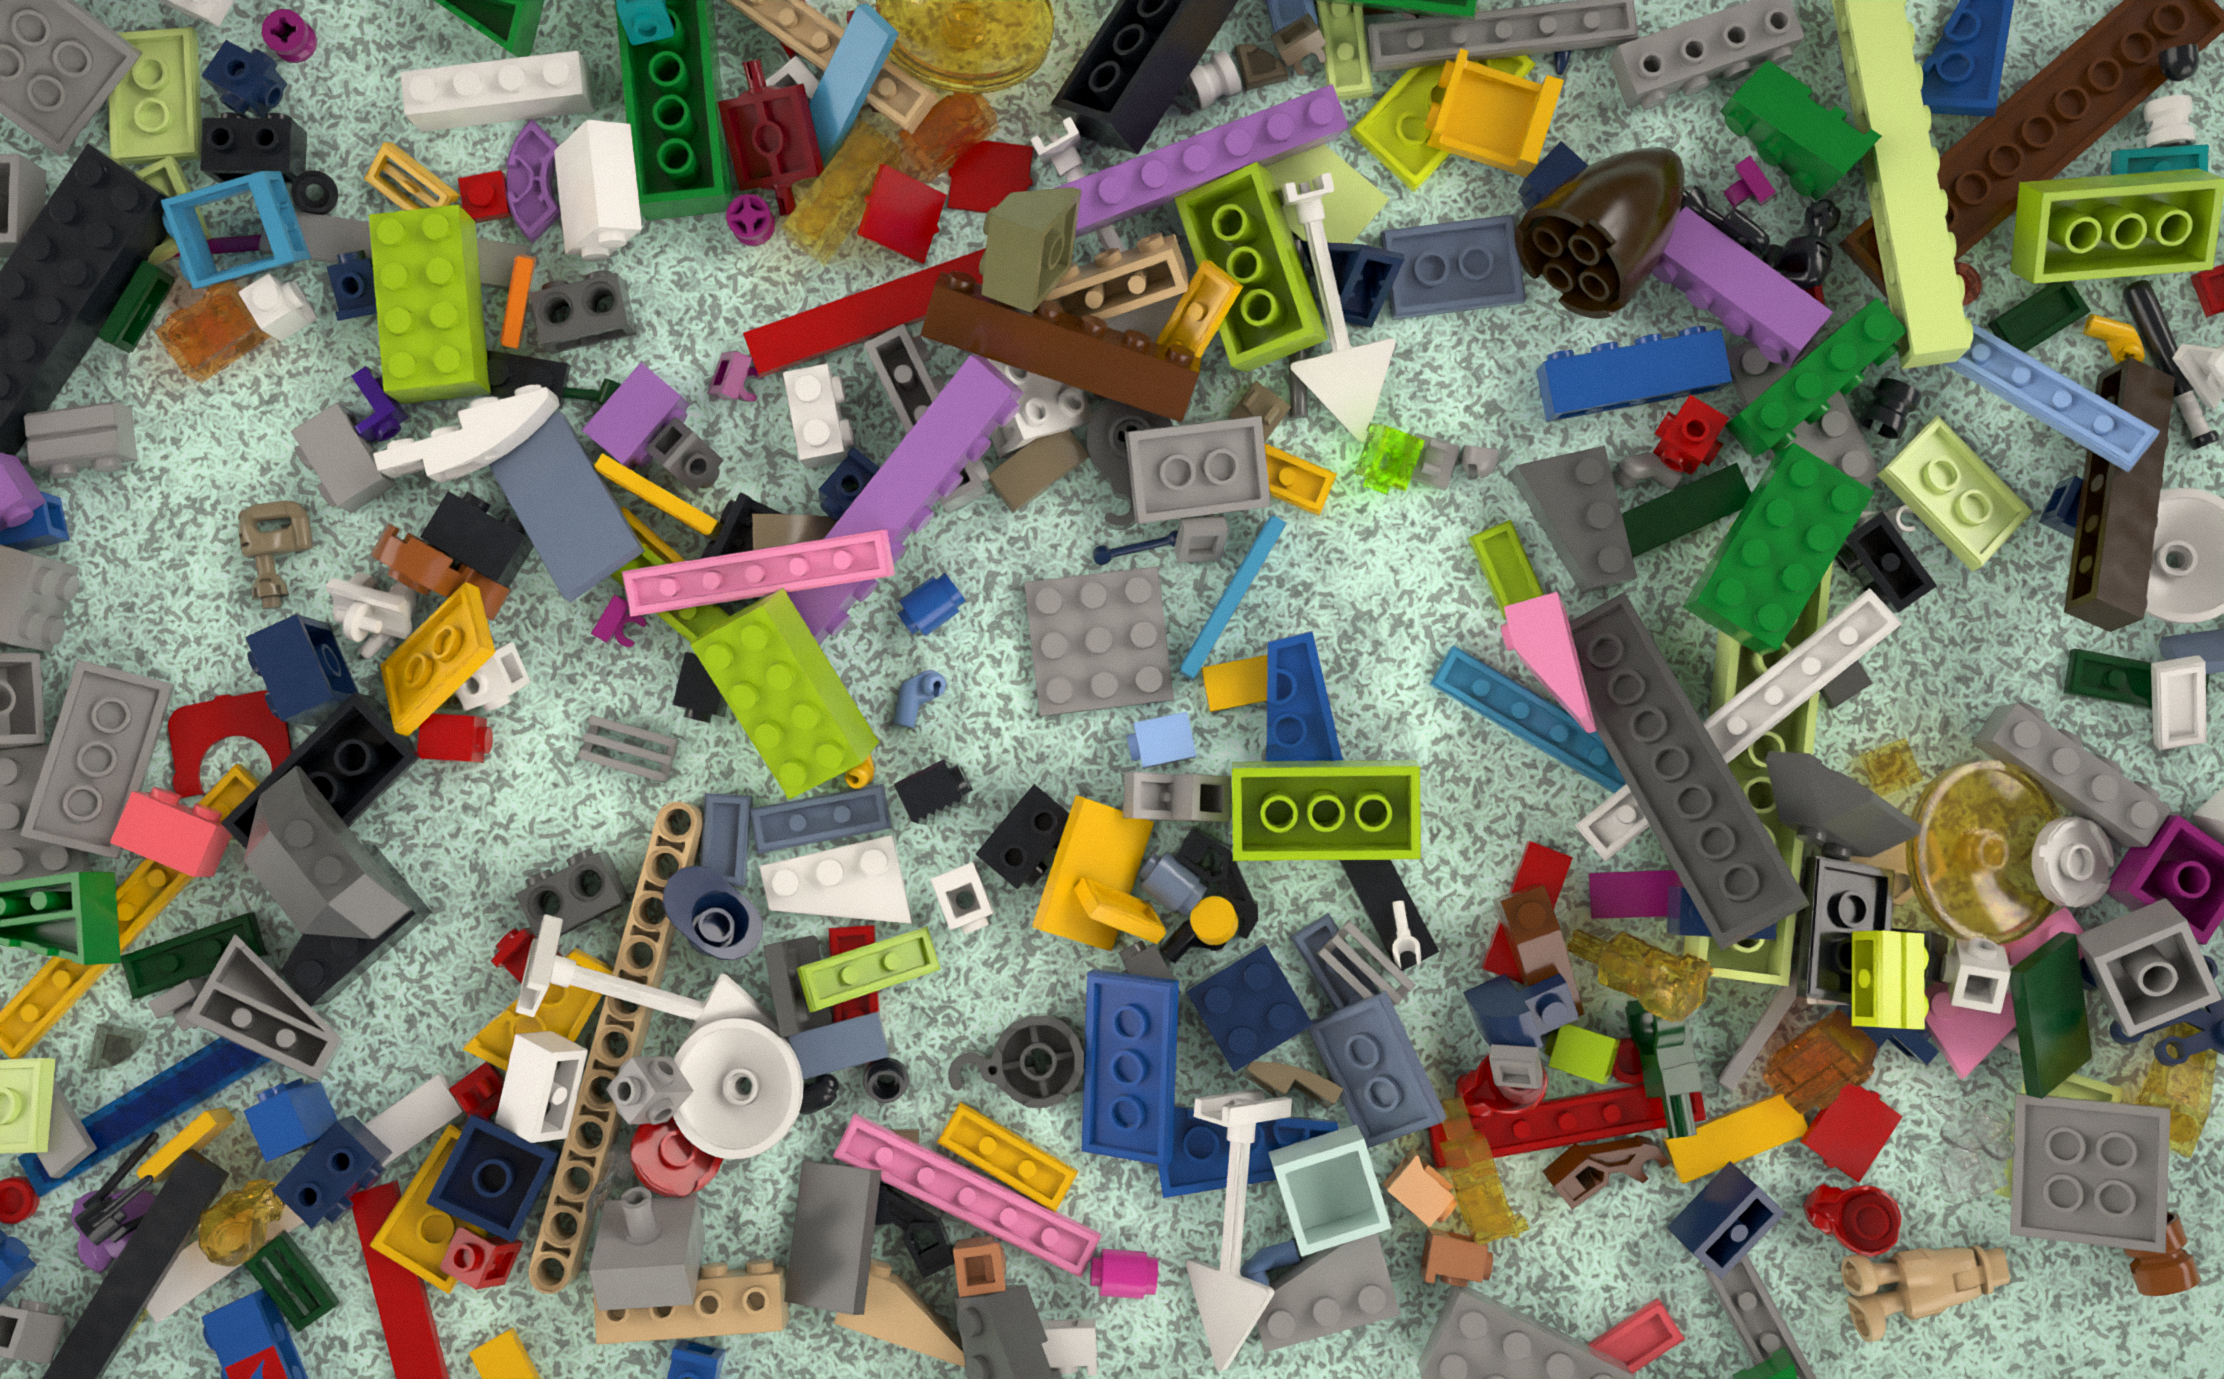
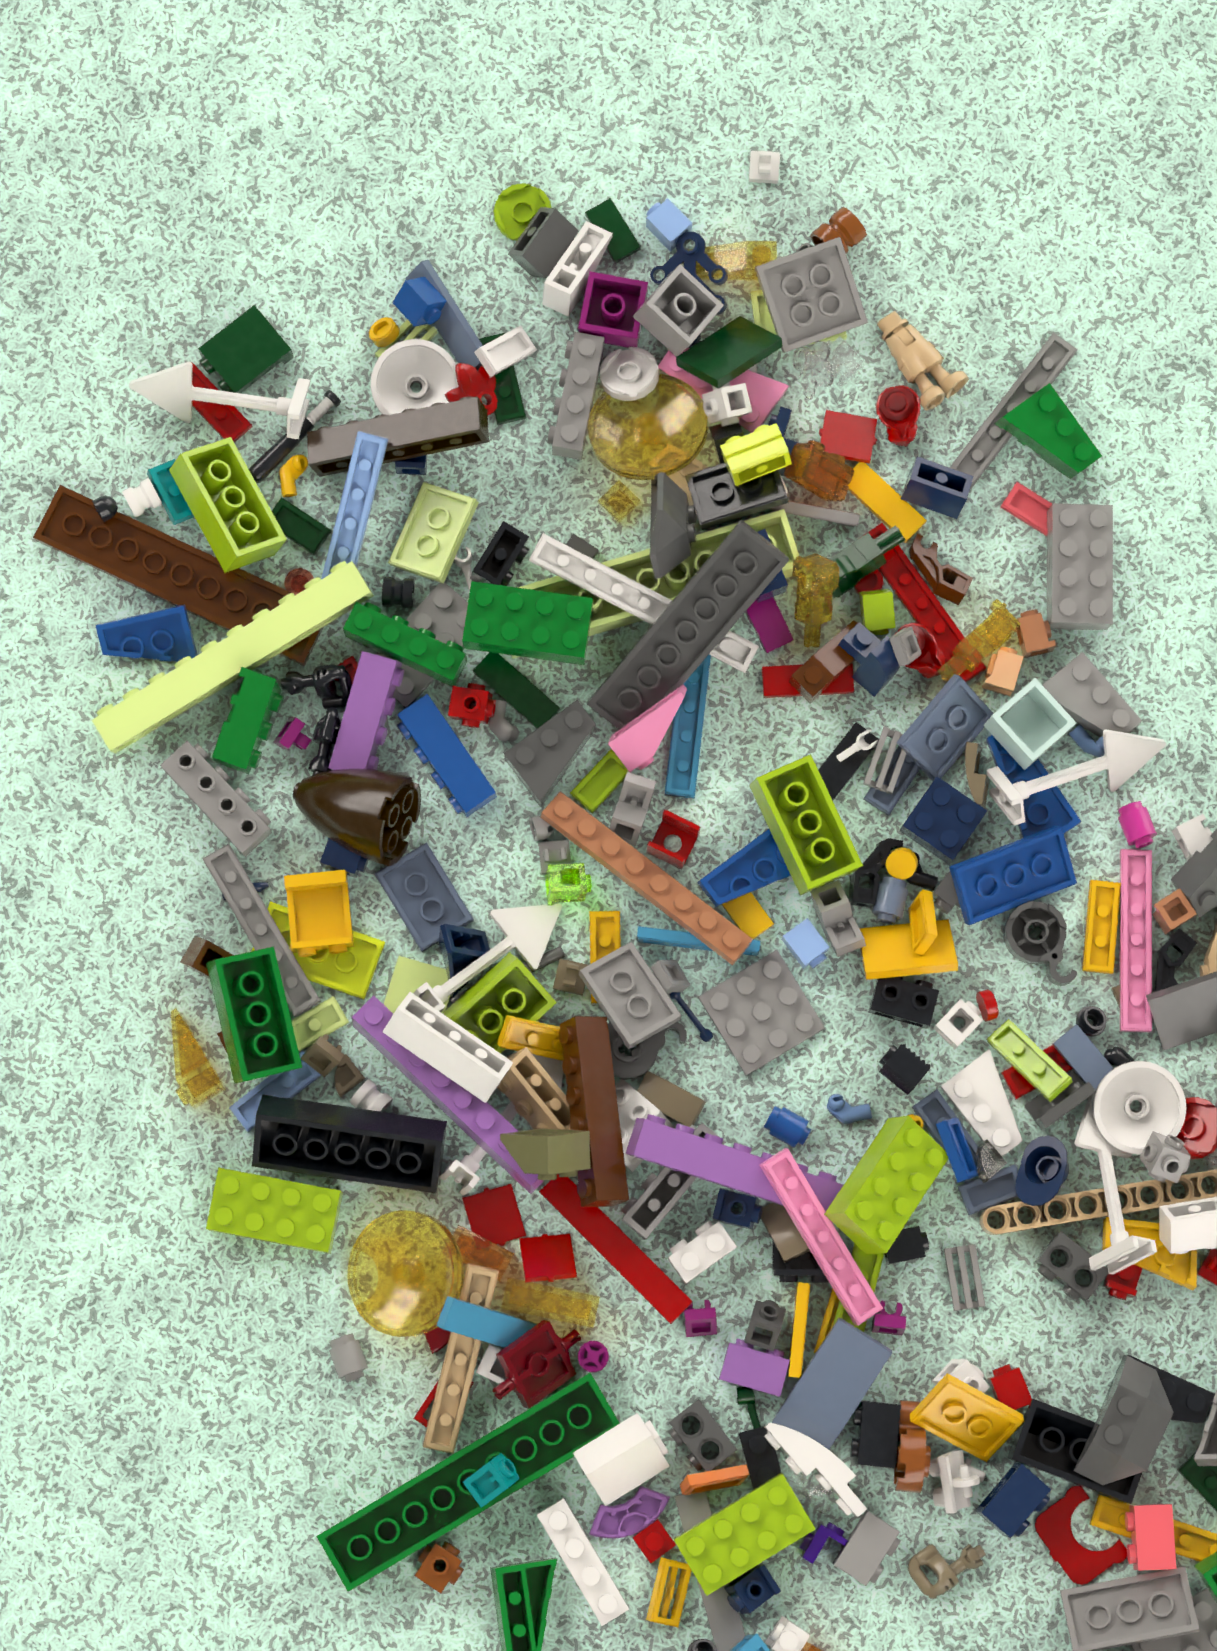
camera: 120 degrees left, 5 degrees down
(760, 850) = (988, 1161): none -> clear smoke tile
(793, 813) = (957, 1149): none -> blue tile
(970, 948) = (987, 1005): none -> red tile
(1232, 177) = (447, 1047): none -> white brick
(1347, 563) = (646, 878): none -> nougat plate
(1381, 604) = (674, 825): none -> red piece
(1451, 588) = (632, 807): none -> light grey brick
(2146, 638) = (474, 384): none -> red plate

